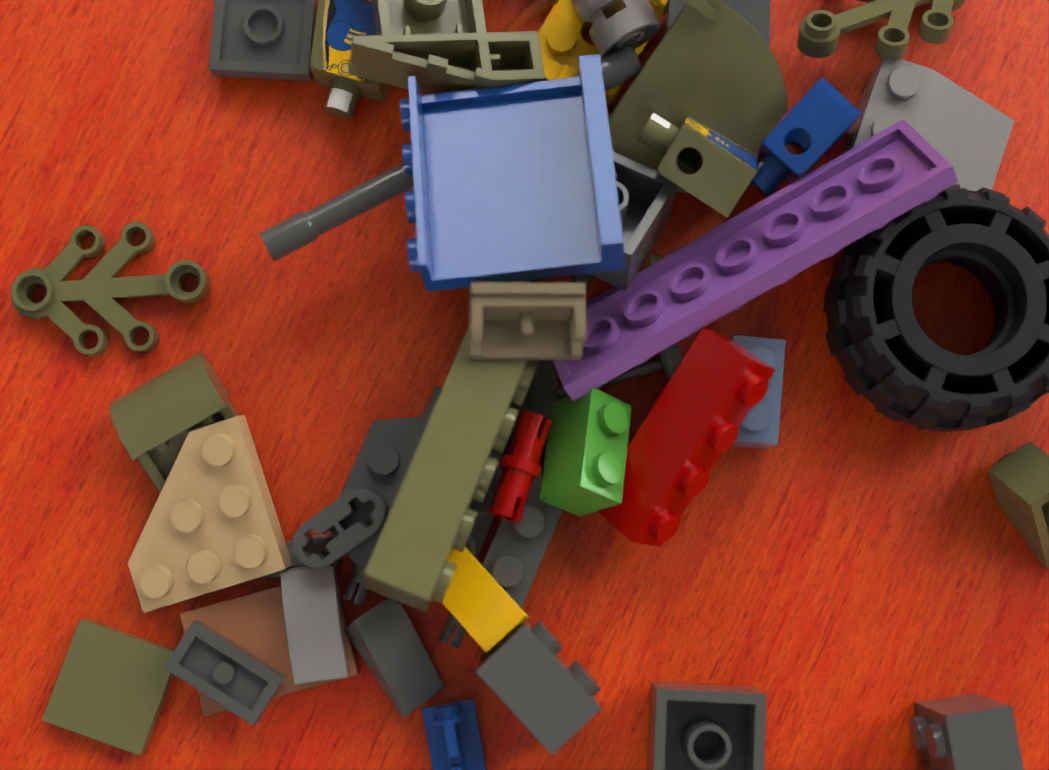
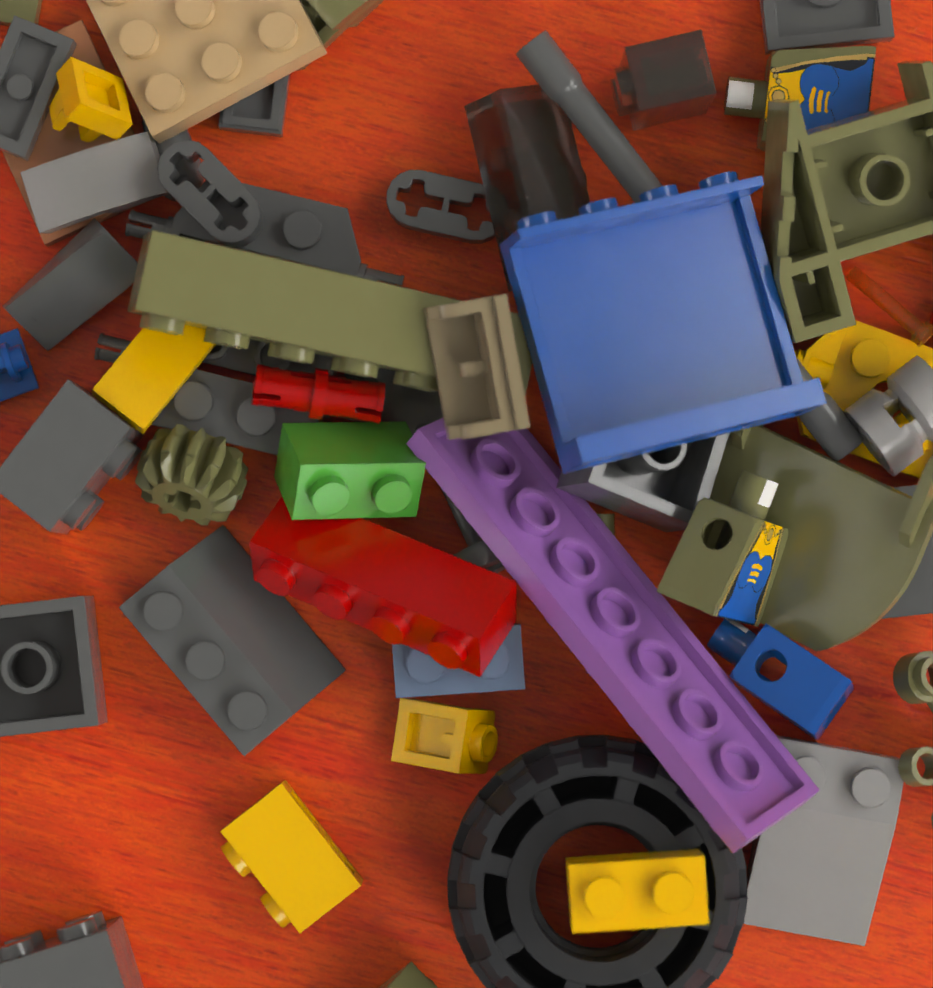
camera: 80 degrees right, 5 degrees up
(245, 614) = (91, 100): none -> yellow tile
(282, 481) = (259, 113): none -> dark grey tile
(316, 150) = (664, 80): none -> clear smoke brick
(365, 274) = (525, 158): none -> clear smoke brick
(374, 340) = (434, 221): none -> dark grey beam
(567, 583) = (191, 474): none -> olive gear
(708, 573) = (232, 640): none -> dark grey slope
(809, 415) = (444, 737): none -> yellow bracket
(890, 554) = (289, 858): none -> yellow brick
(980, 262) = (637, 890): none -> yellow brick

